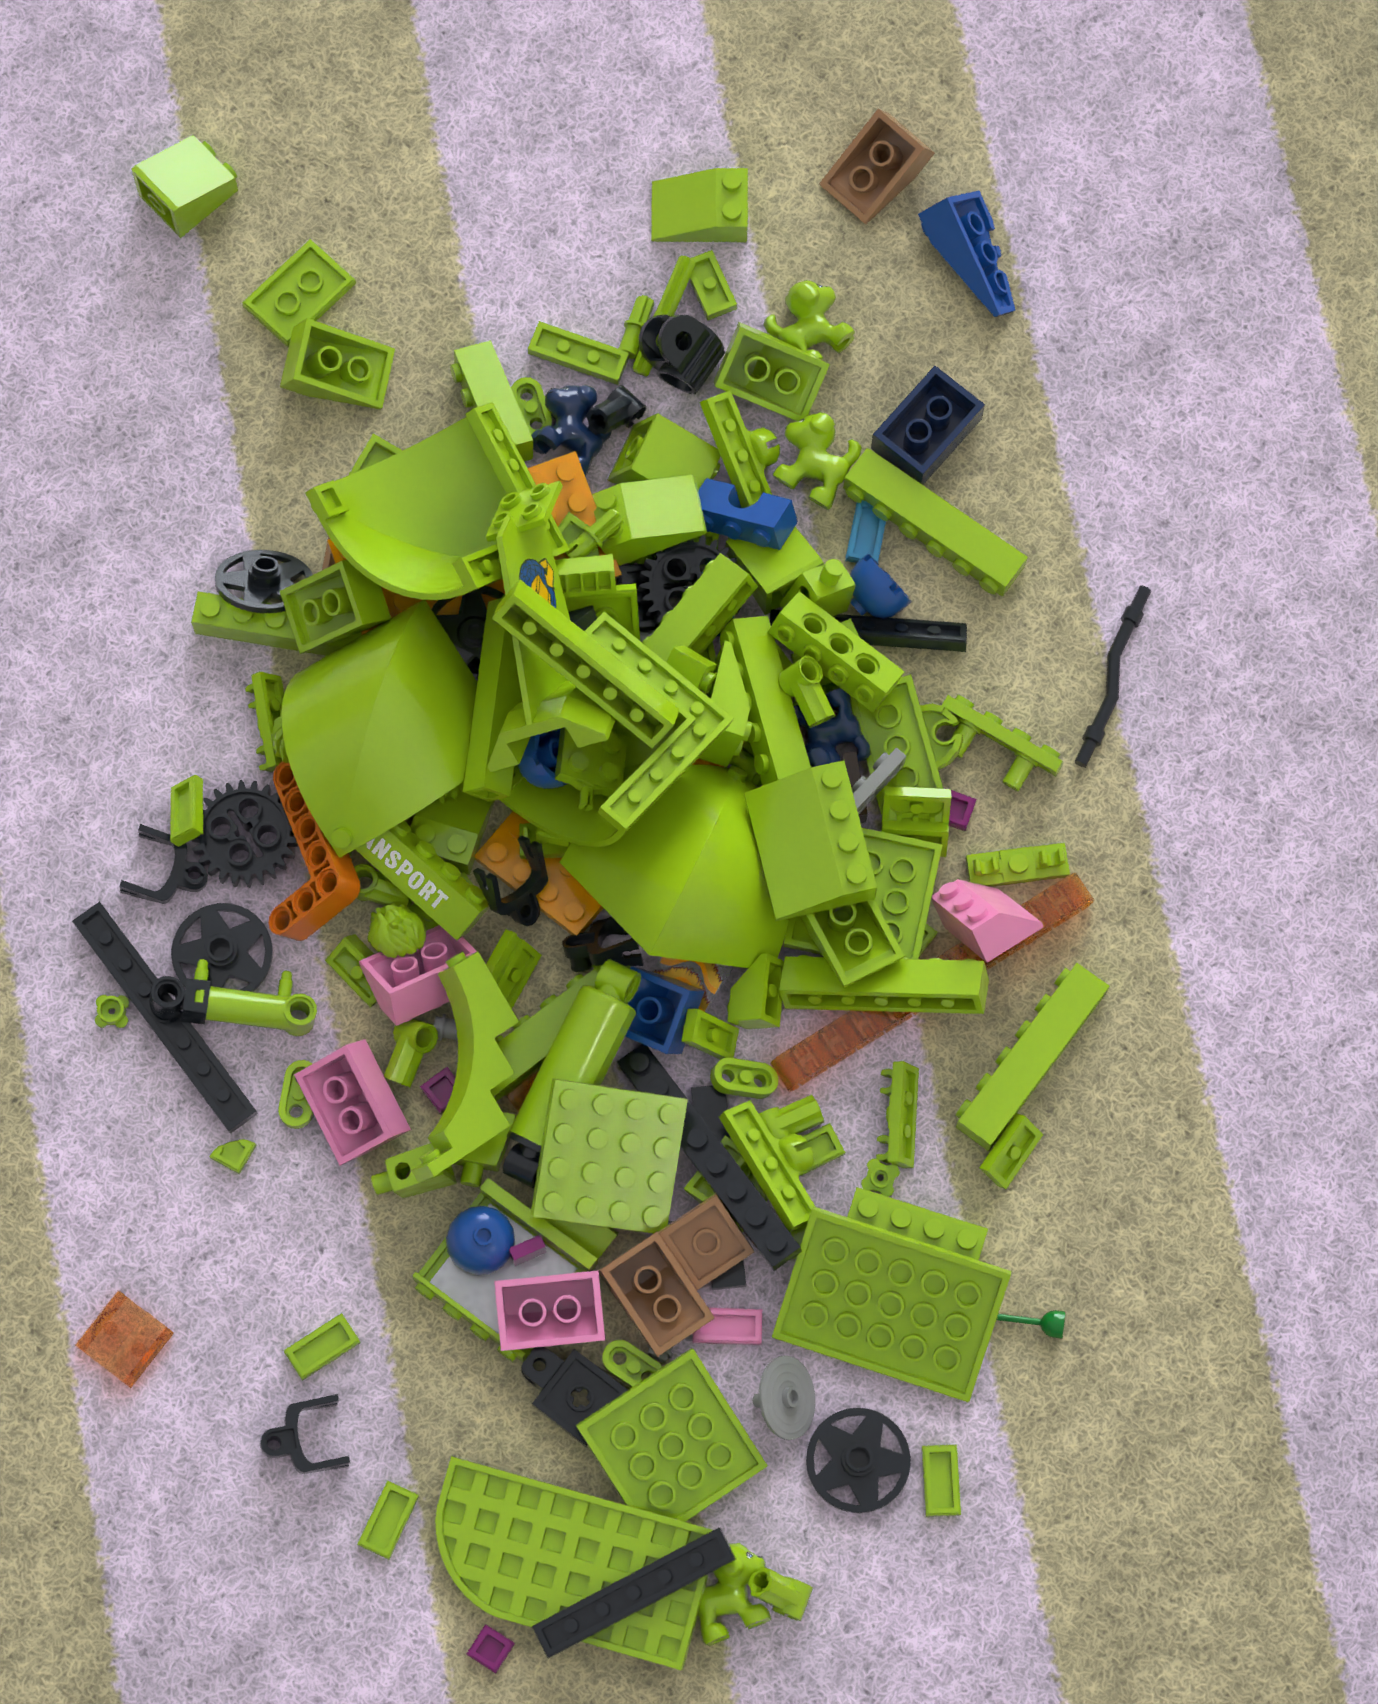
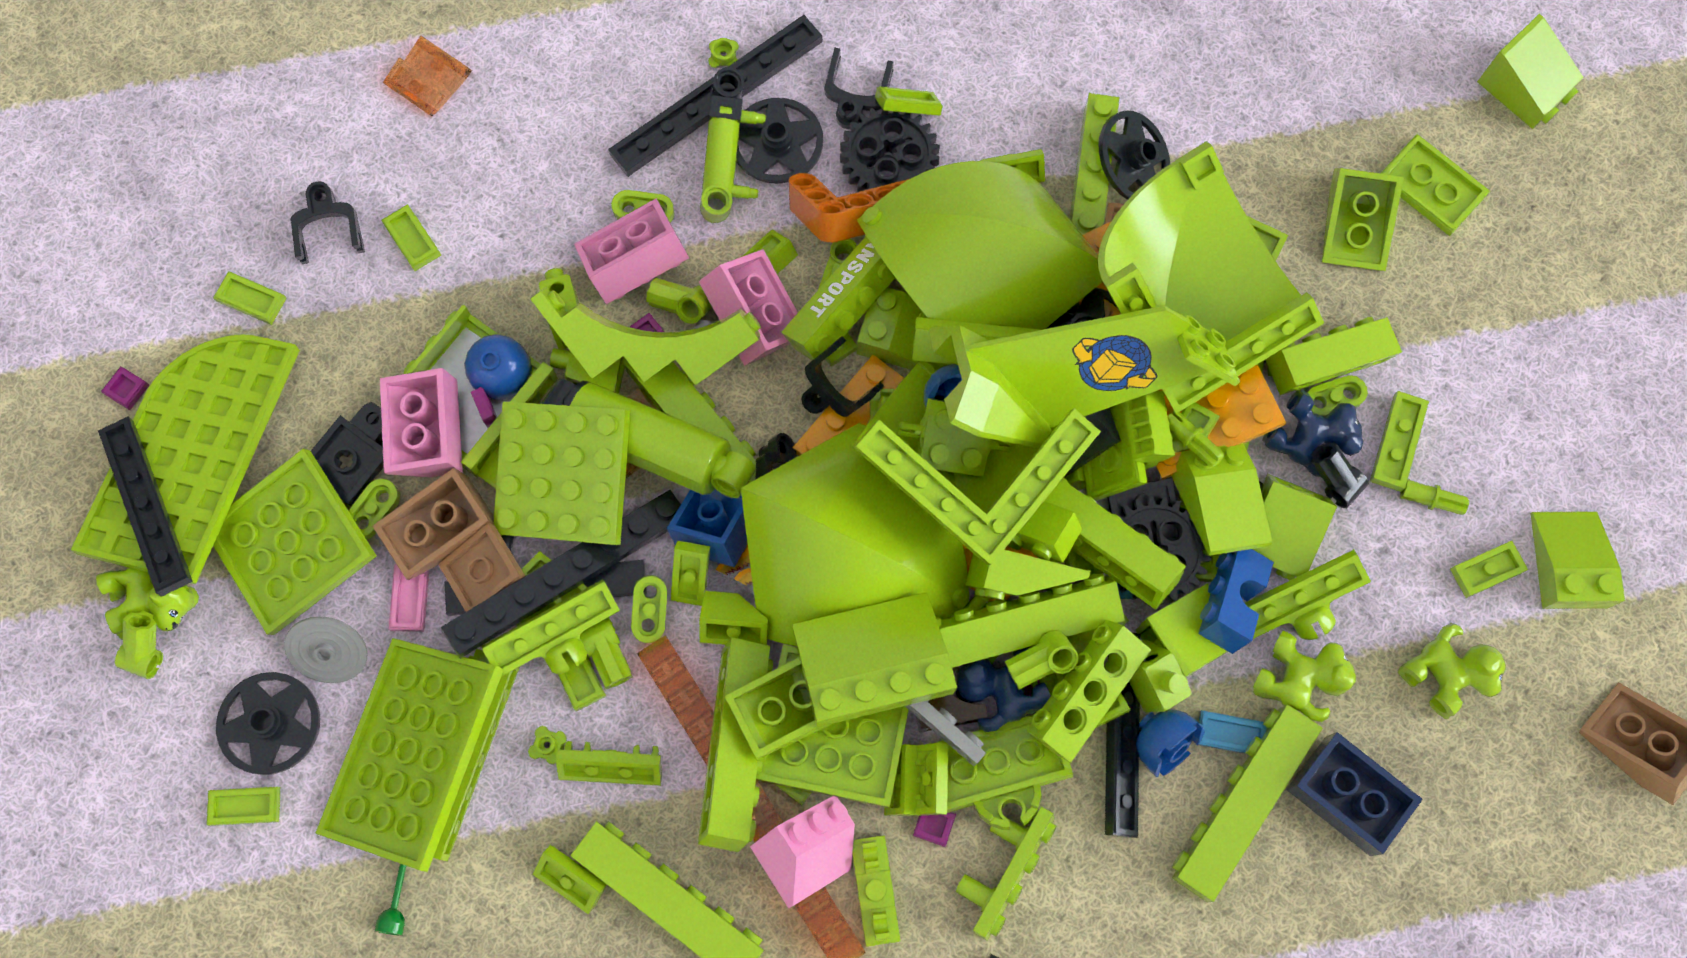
camera: 90 degrees right, 0 degrees up
(234, 1154) = (590, 158): lime tile -> none
(333, 606) = (1099, 198): lime slope -> none
(396, 931) = (792, 282): lime hair -> none
(512, 964) = (757, 385): lime plate -> none
(585, 663) = (1031, 398): lime brick -> none
(668, 303) = (1449, 522): lime axle -> none
(685, 351) = (1409, 549): black piece -> none
(770, 373) = (1397, 626): lime slope -> none
(918, 1223) = (492, 780): lime brick -> none
(961, 235) = (1575, 835): blue wedge -> none

